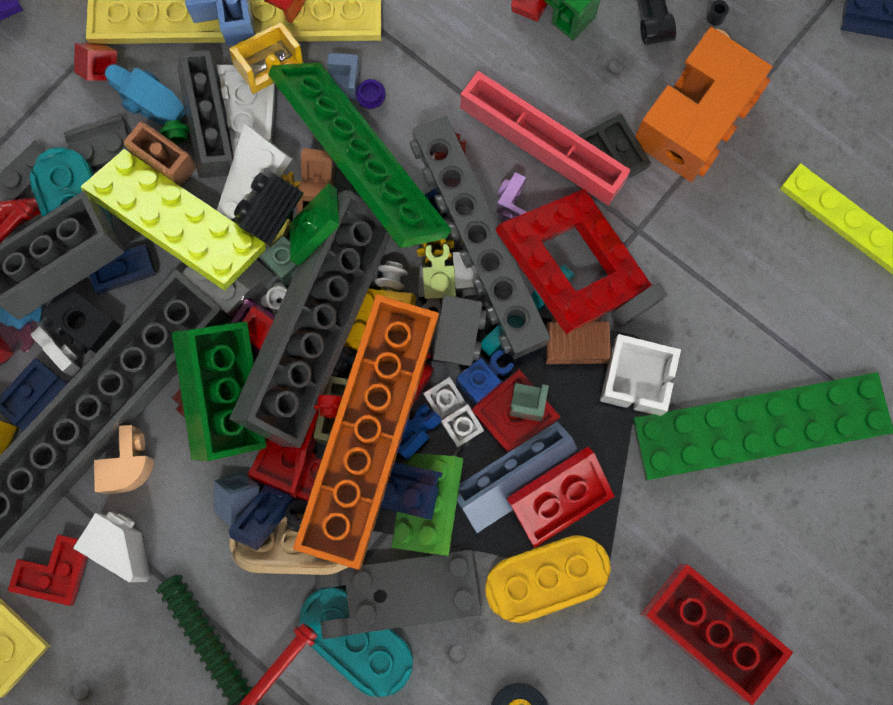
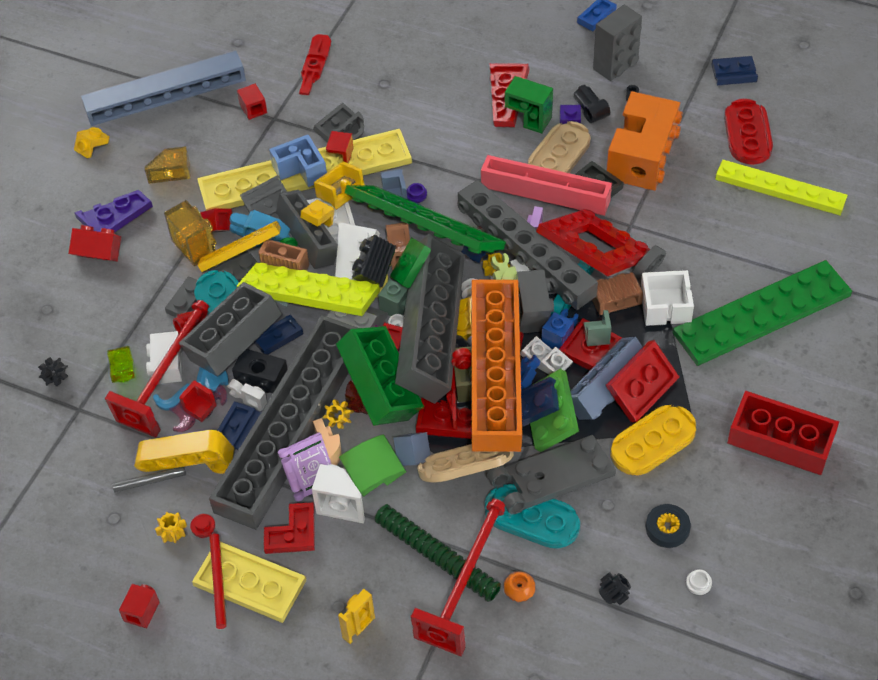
camera: 15 degrees left, 25 degrees down
(49, 76) = (190, 231): none -> clear yellow brick
(87, 494) = (304, 464): none -> lavender piece
(106, 119) = (239, 246): none -> yellow tile
(158, 419) = (343, 418): none -> yellow gear
(160, 46) = (264, 196): none -> dark grey plate
(180, 504) = (372, 464): none -> bright green slope
(220, 101) = (318, 213): none -> yellow bracket
(260, 517) = (436, 449): dark blue plate -> none
(291, 512) = (462, 442): black bush -> none
(585, 79) = (562, 147): none -> tan tile
(620, 22) = (570, 113): none -> dark purple plate
(854, 123) = (748, 131): none -> red tile

